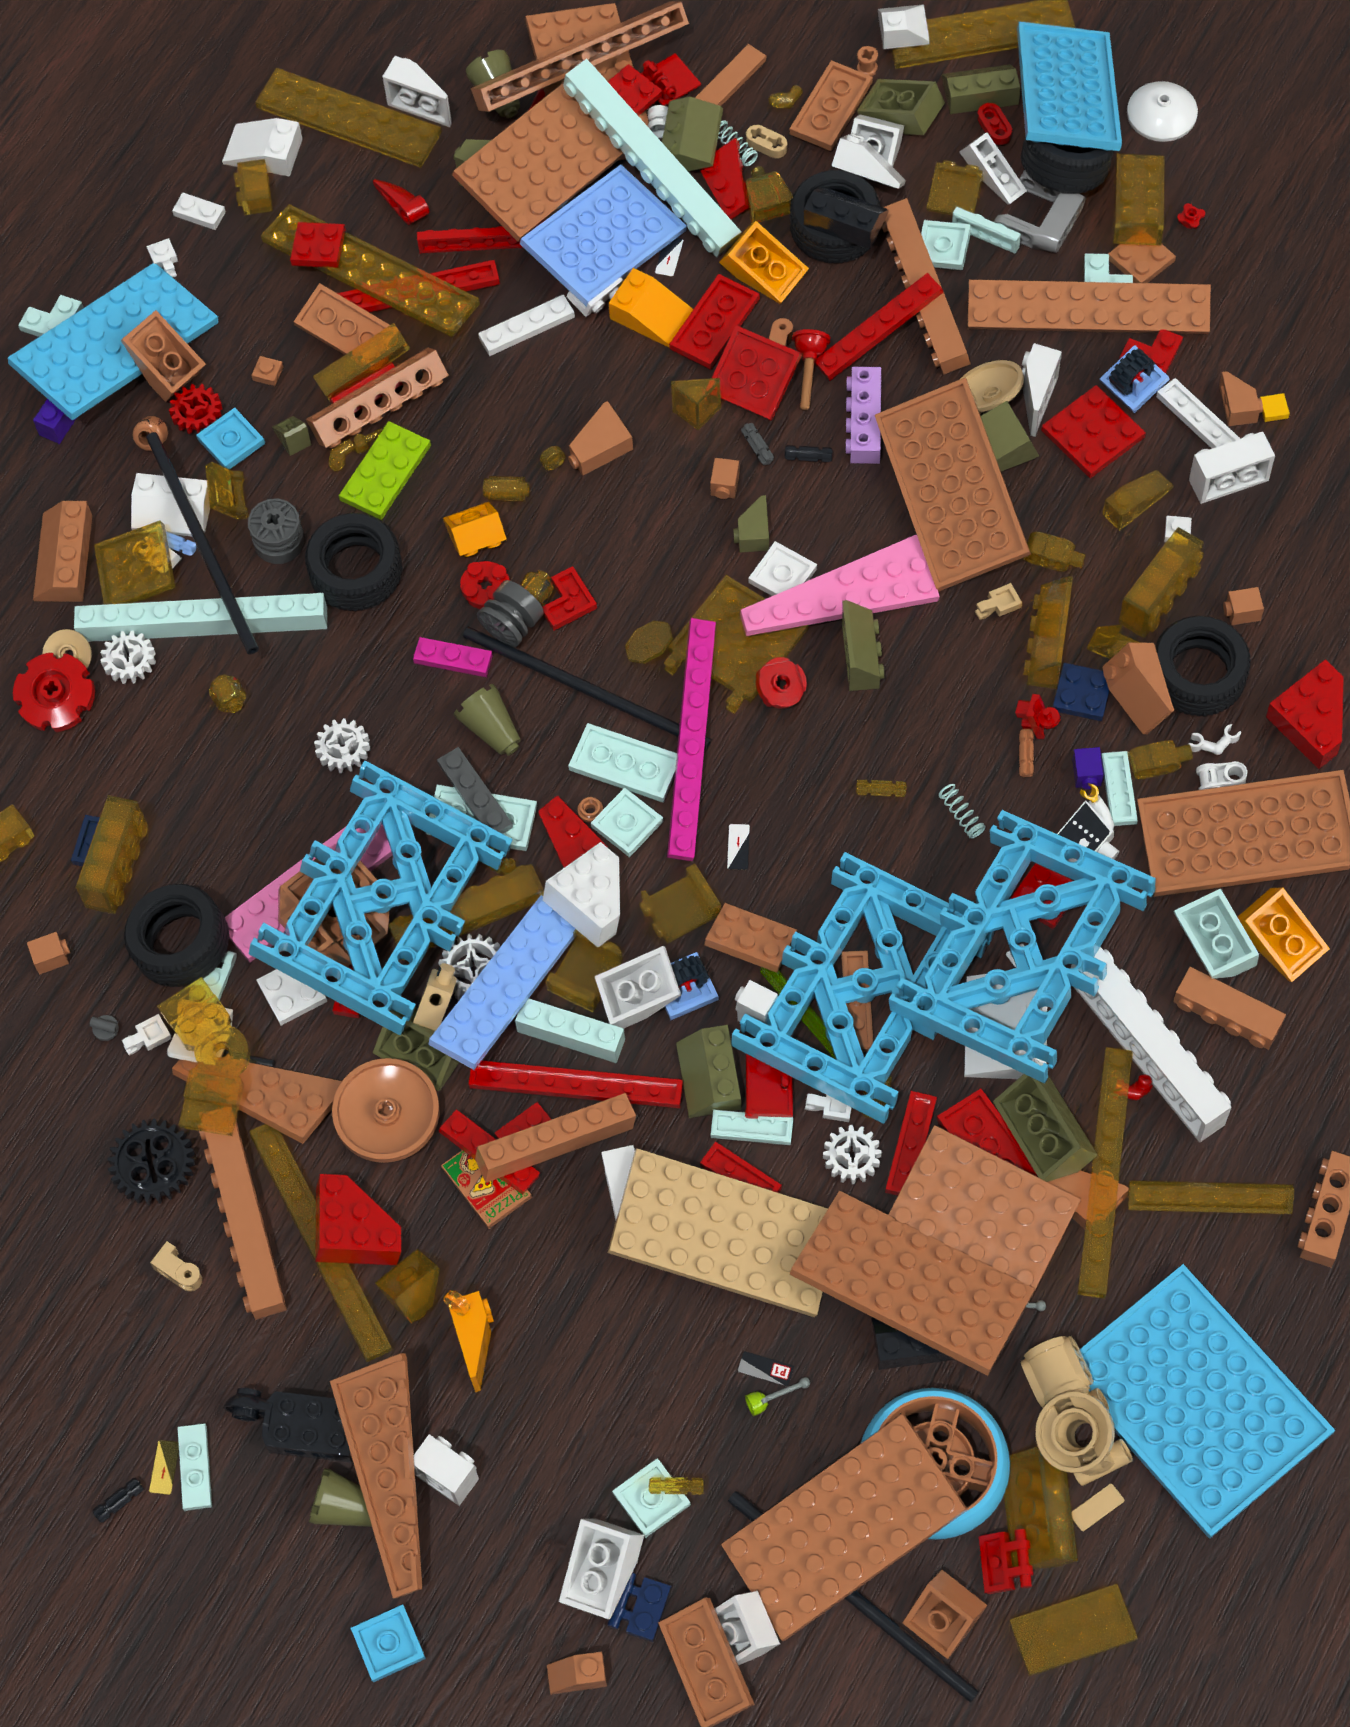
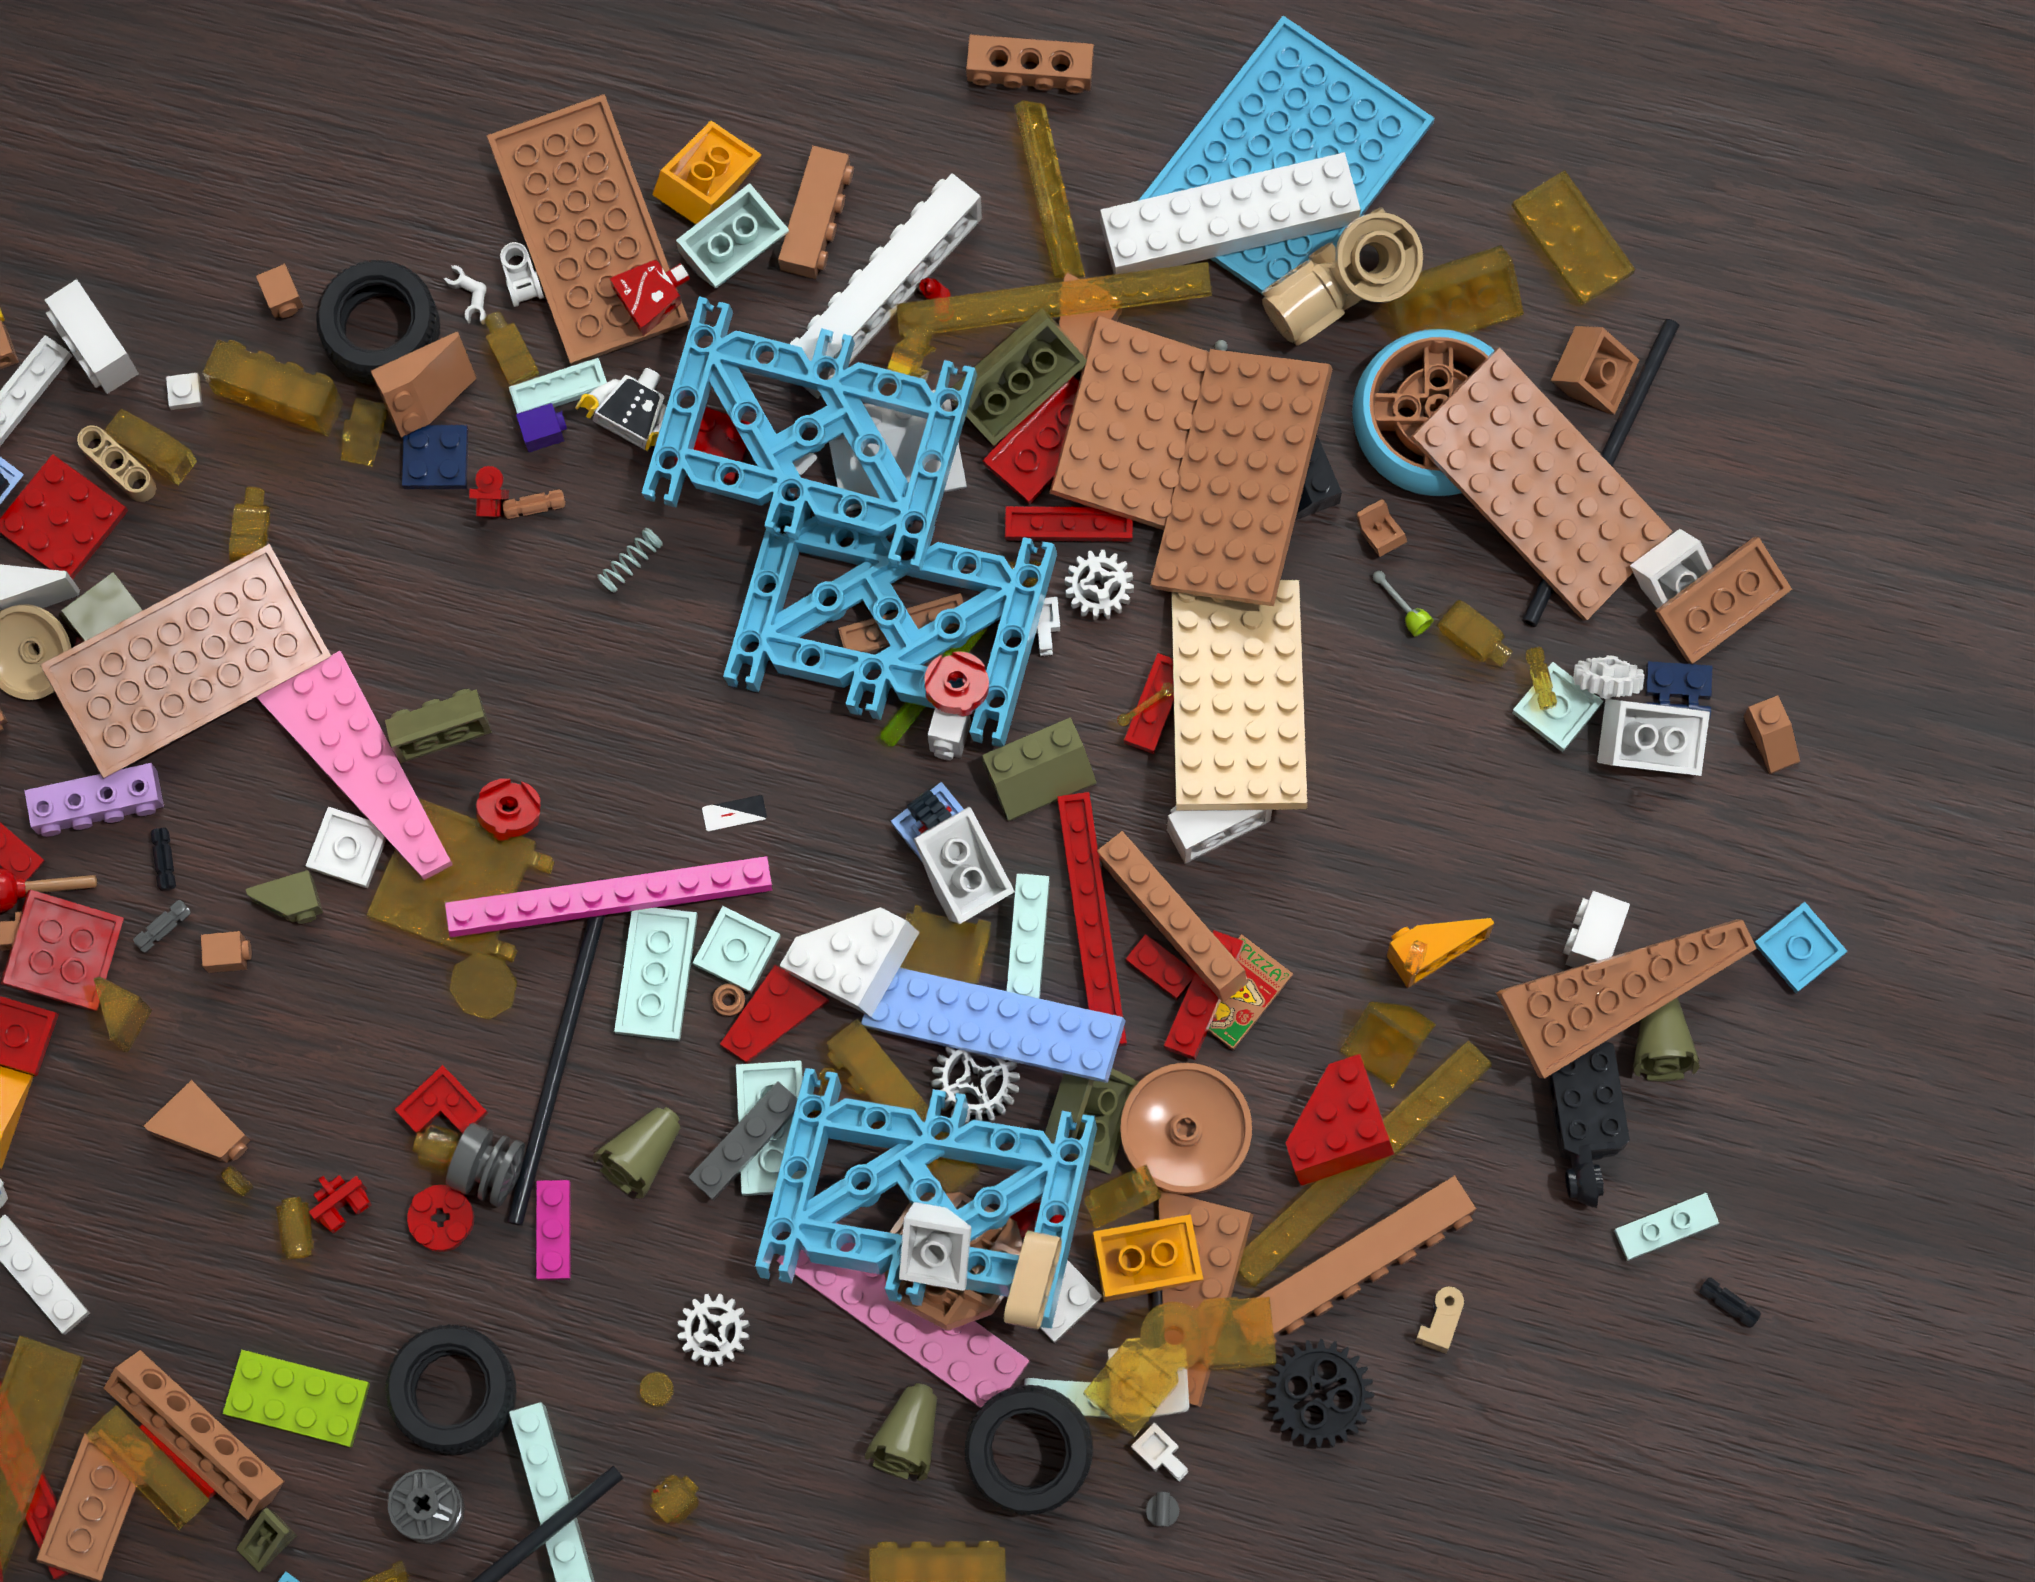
camera: 105 degrees left, 10 degrees up
(164, 1467) = (1674, 1263): clear yellow sticker -> none
(219, 857) = (906, 1435): none -> olive cone
(281, 936) = (1033, 1280): none -> tan beam
(294, 1053) = (1146, 1257): none -> light orange slope
(313, 701) = (656, 1389): none -> clear yellow tile
(333, 874) = (935, 1247): none -> white slope
(338, 454) = (288, 1467): clear yellow arm -> none
(346, 1050) = (1121, 1196): none -> clear yellow hinge
(360, 441) = (262, 1442): clear yellow hand -> none
(436, 997) = (1035, 1102): tan torso -> none
(475, 529) = (362, 1252): light orange slope -> none
(519, 528) = (327, 1210): none -> red hips
(661, 1541) = (1608, 677): none -> white gear
(681, 905) = (831, 857): clear yellow panel -> none
(731, 1144) = (1167, 690): none -> clear yellow hinge
(732, 1445) = (1474, 633): none -> clear yellow piece
(736, 1126) = (1093, 705): light aqua plate -> none
(749, 937) = (855, 764): nougat plate -> none
(765, 1091) = (1047, 700): red door -> none
(765, 1368) = (1372, 624): sticker -> none
(780, 1022) = (956, 700): none -> plate
(844, 1391) = (1380, 528): none -> nougat bracket
(881, 788) = (619, 661): clear yellow axle -> none
(997, 1561) = (1524, 327): red plate -> none
(1001, 600) = (331, 575): tan plate -> none
(1049, 633) = (369, 504): clear yellow slope -> none
(1076, 1046) = (911, 351): none -> clear yellow hips
(1097, 1507) = (1433, 245): tan sticker -> none
(1132, 463) = (109, 451): none -> tan beam
(1150, 1333) = (1230, 215): none -> white brick
(1179, 861) = (649, 292): none -> red torso
(1312, 713) = (412, 186): red brick -> none

